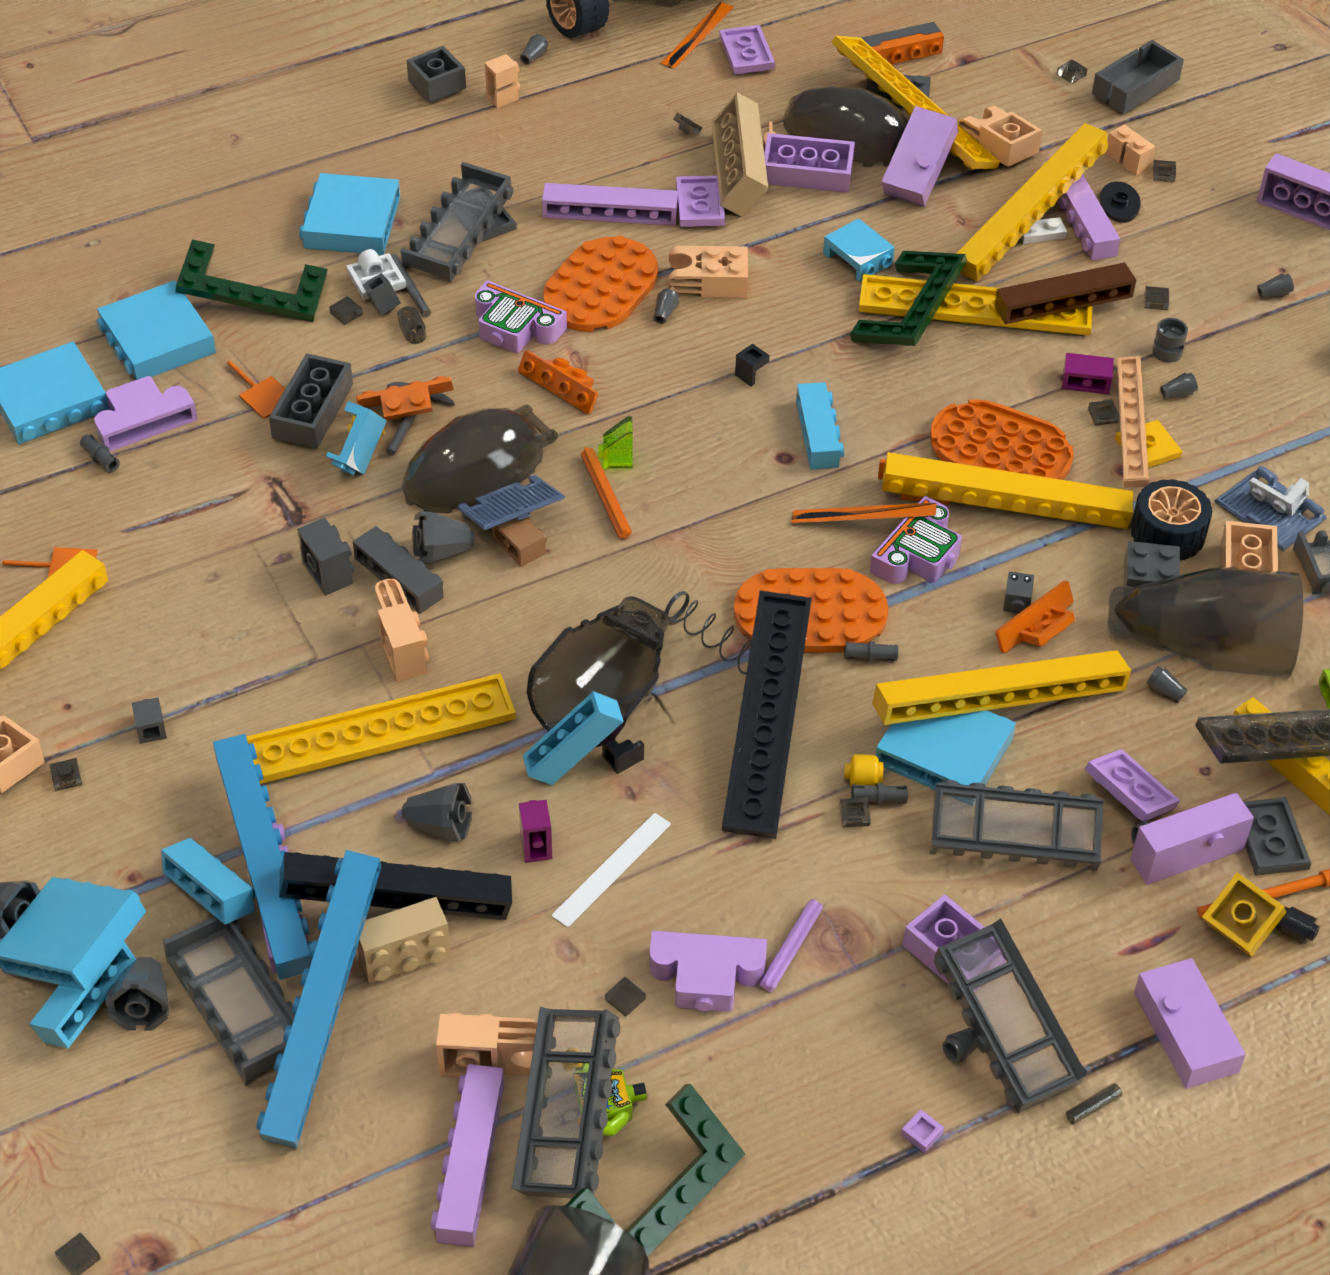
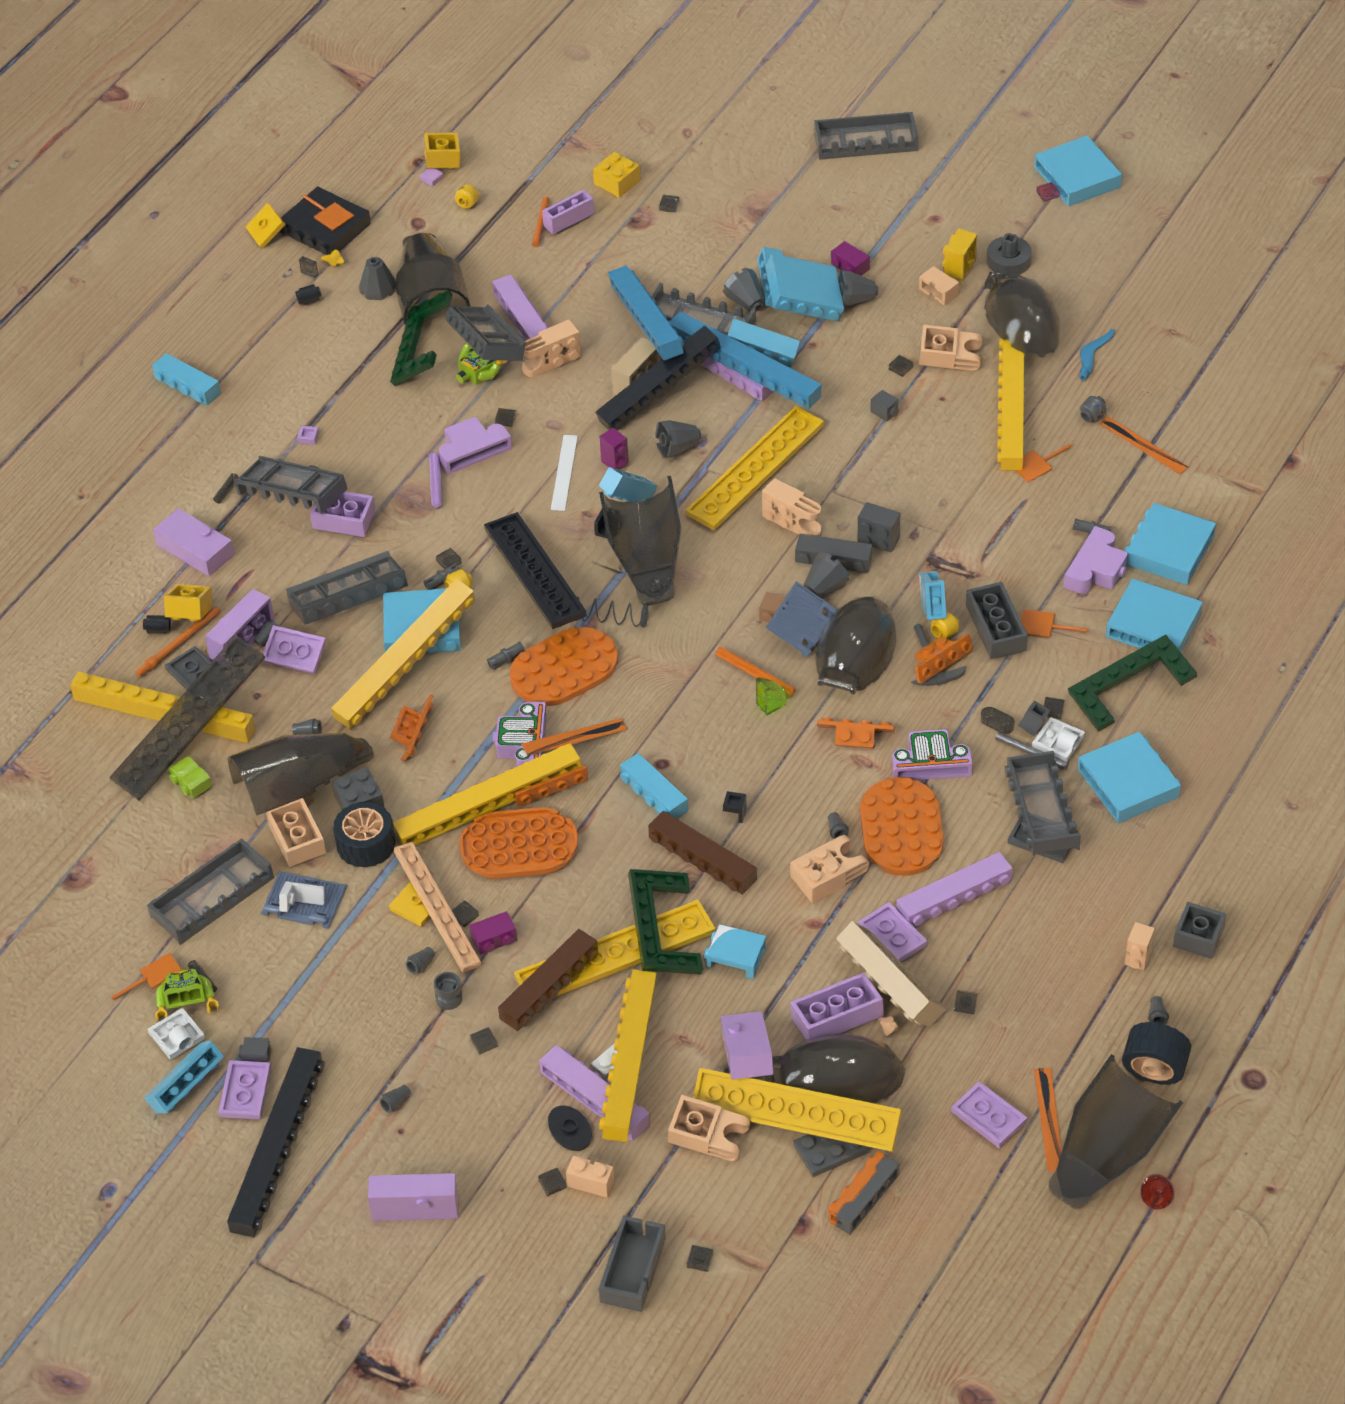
camera: 150 degrees right, 0 degrees up
(820, 344) = (702, 852): none -> reddish brown brick
(1018, 592) = (437, 738): dark grey brick -> none

